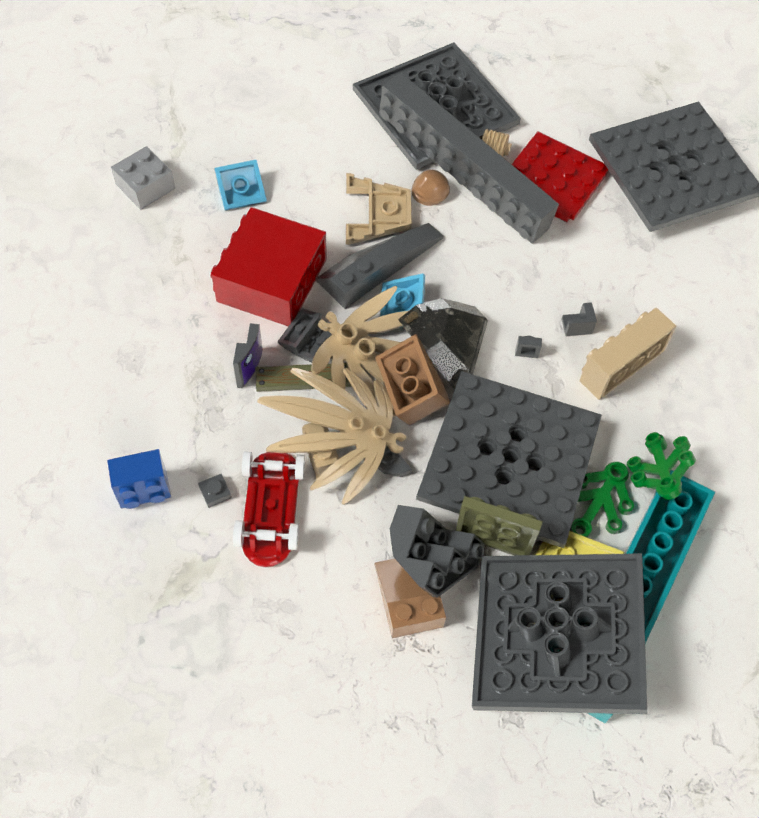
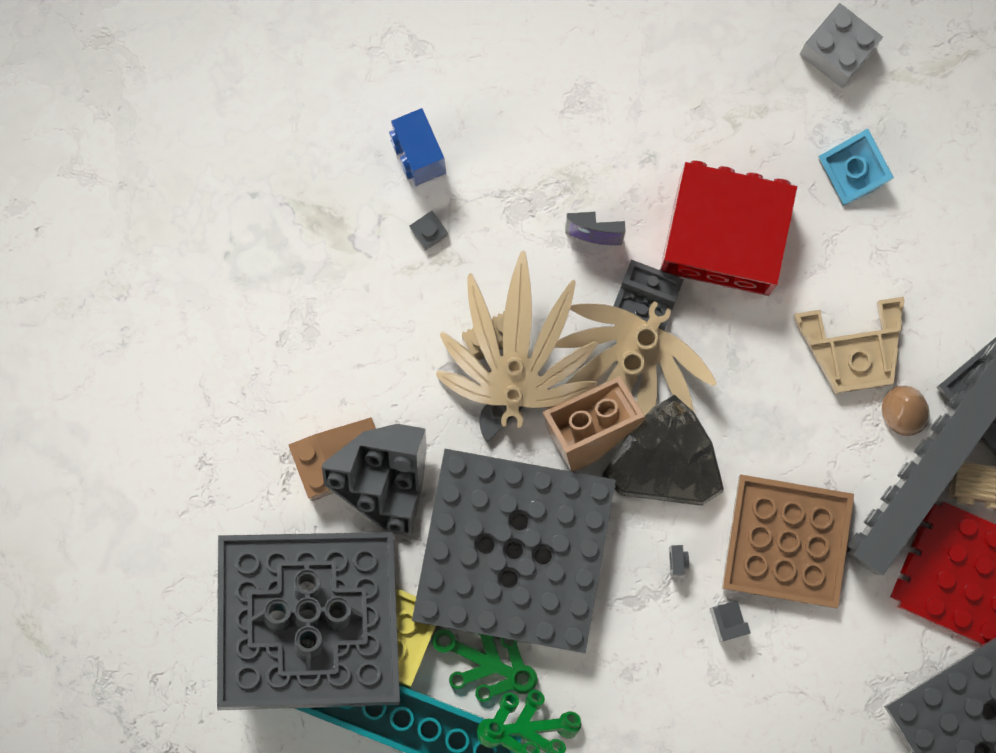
camera: 85 degrees right, 20 degrees up
(270, 507) = (414, 292): red piece -> none
(280, 378) = (588, 287): olive tile -> none
(371, 266) = (773, 358): dark grey wedge -> none
(408, 294) = (723, 402): medium azure slope -> none
(498, 526) = (415, 540): olive plate -> none
(520, 274) = (788, 541): none -> medium nougat plate
(626, 352) = (682, 682): tan brick -> none

